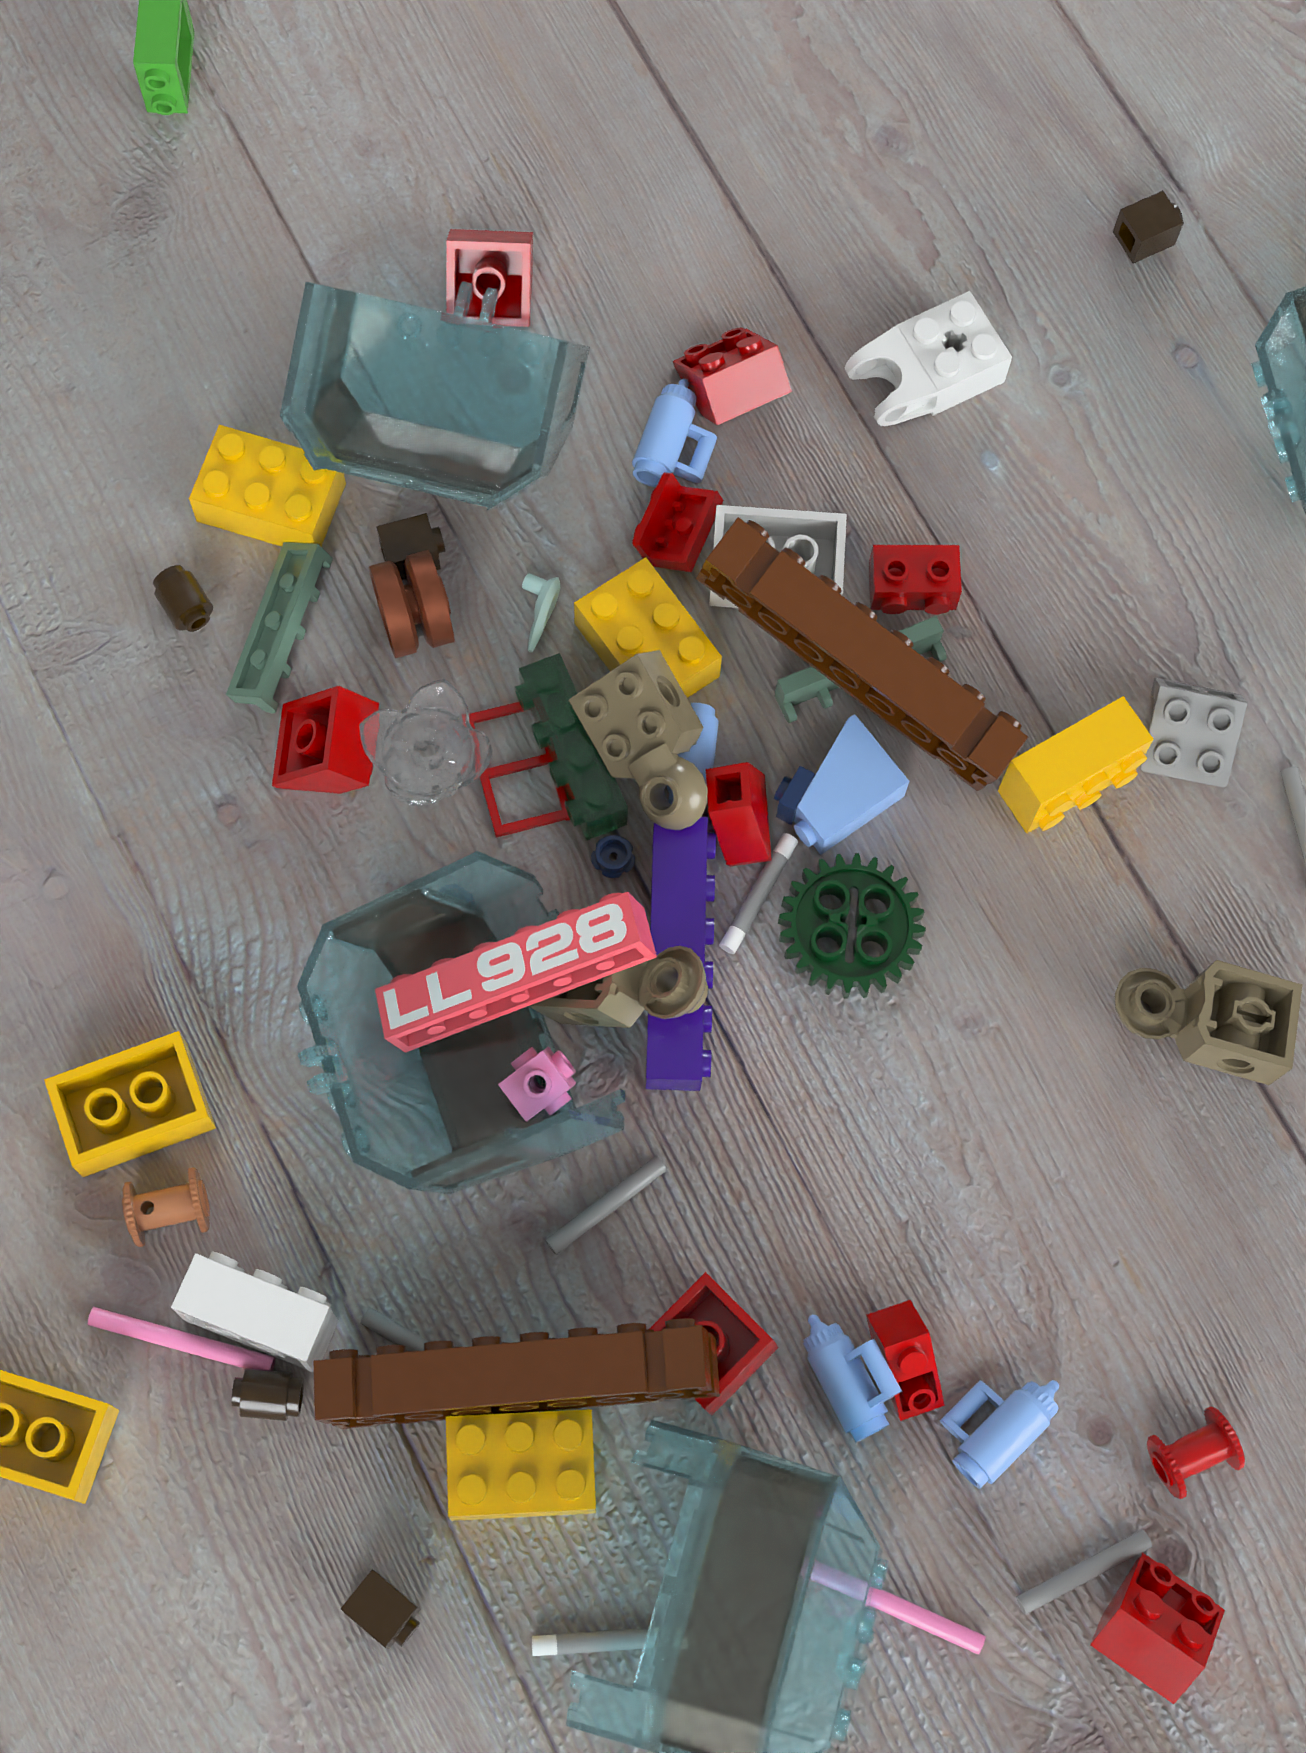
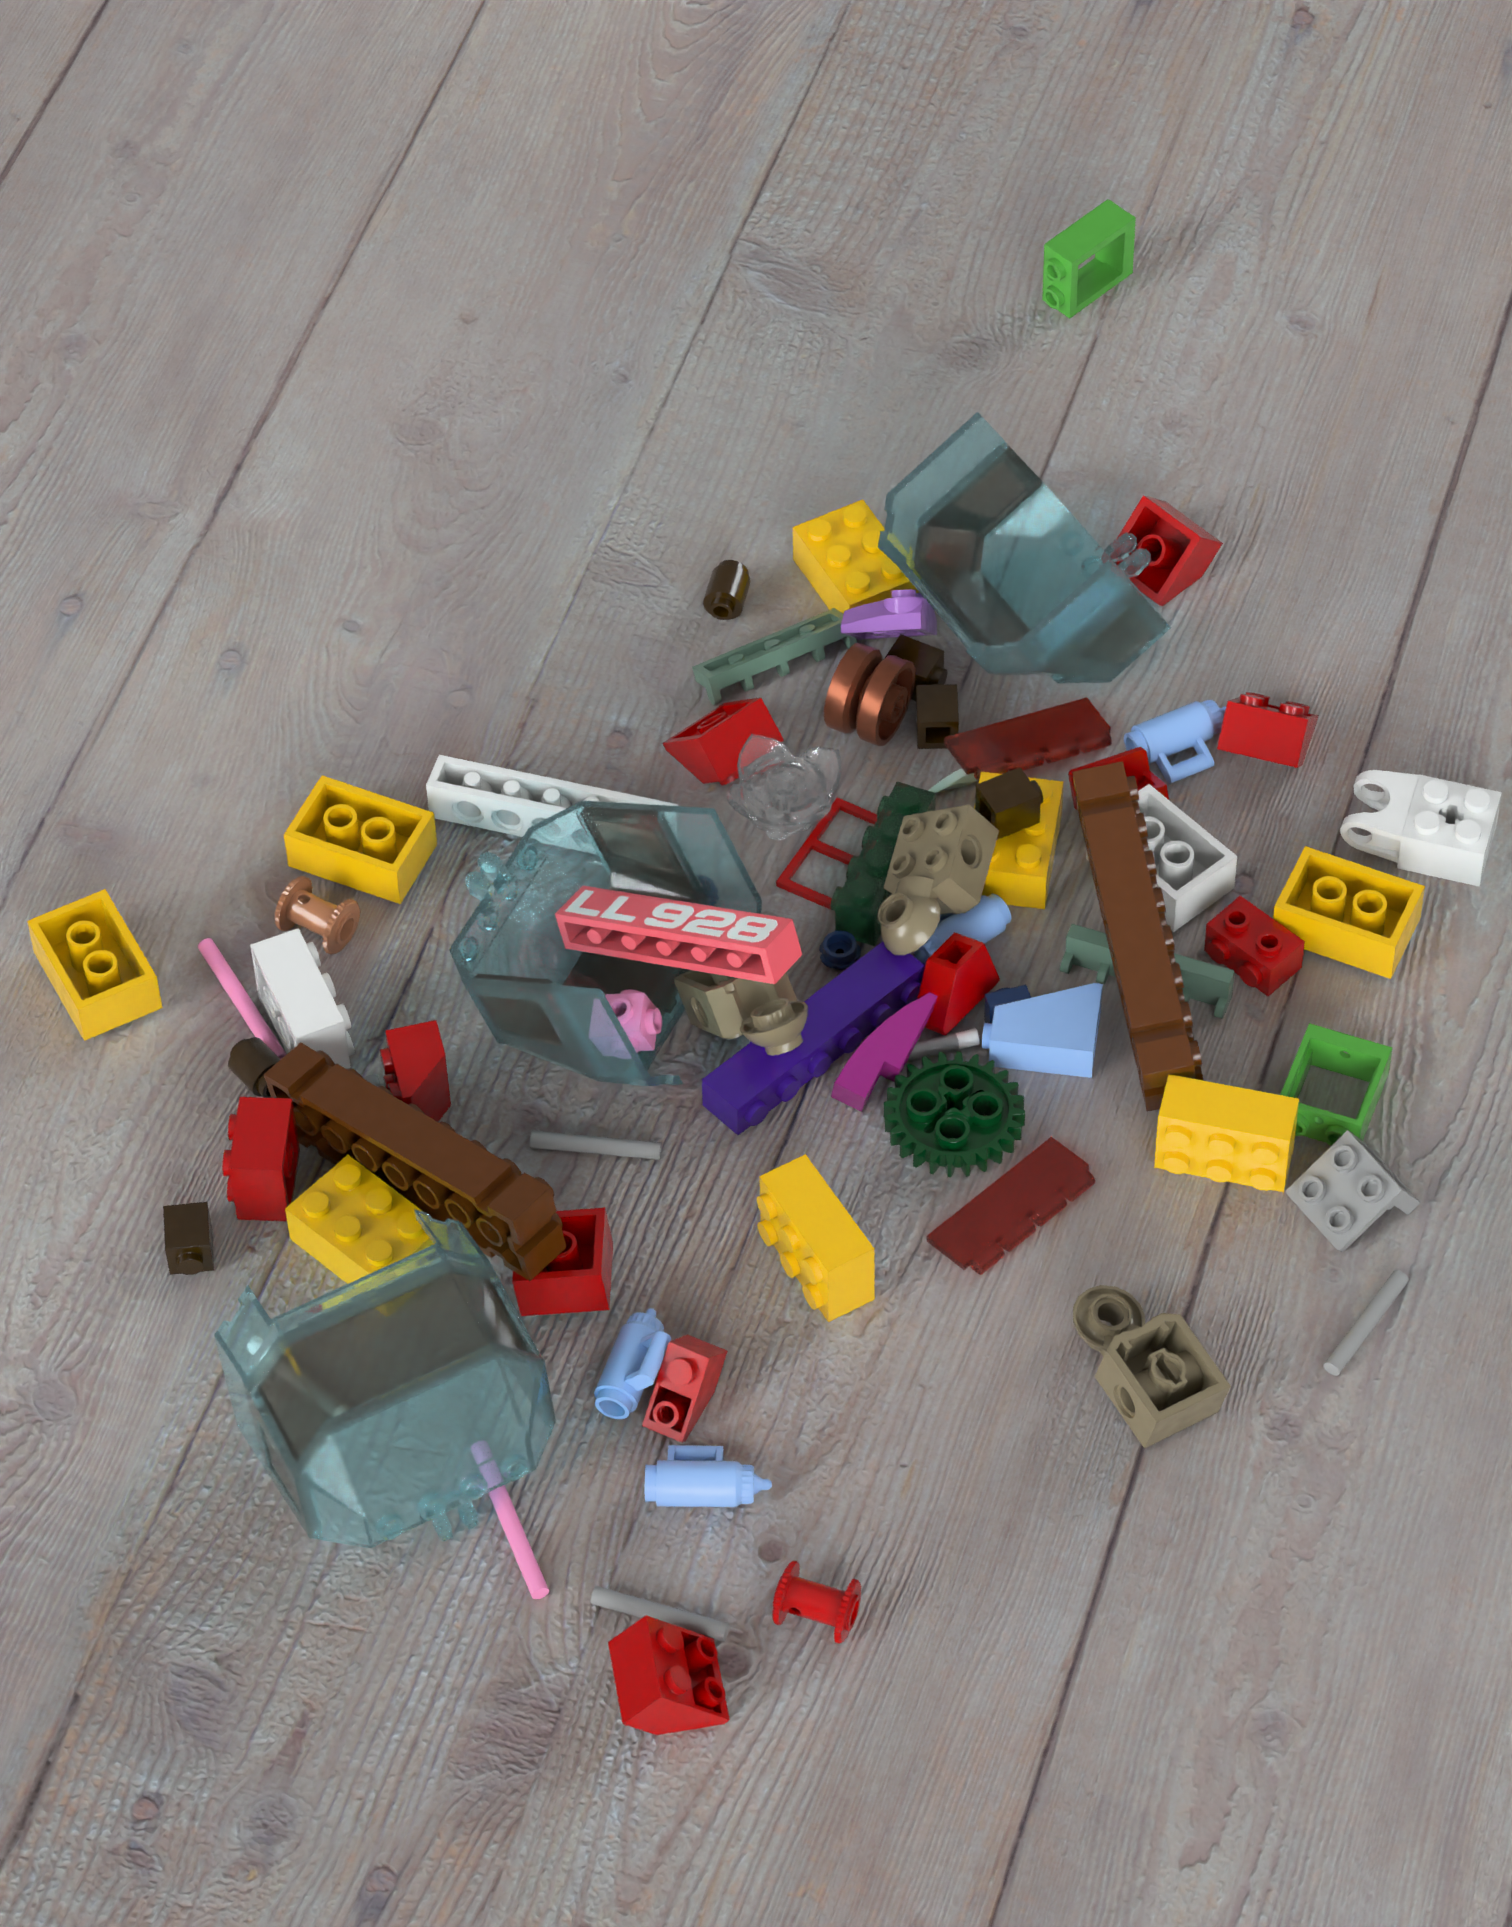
camera: 50 degrees right, 20 degrees down
(256, 935) = (505, 797): none -> white brick
(360, 521) = (902, 614): none -> medium lavender slope
(375, 1483) = (262, 1158): none -> red brick
(420, 1286) = (417, 1067): none -> red slope
(471, 574) = (936, 714): none -> dark brown brick
(564, 536) = (1020, 741): none -> clear red windscreen
(642, 617) = (1009, 802): none -> dark brown brick
(753, 920) = (883, 1053): none -> magenta slope
(880, 1140) = (816, 1238): none -> yellow brick
(959, 488) = (1350, 911): none -> yellow brick
(961, 971) = (1002, 1211): none -> clear red windscreen
(1081, 612) = (1325, 1050): none -> bright green window

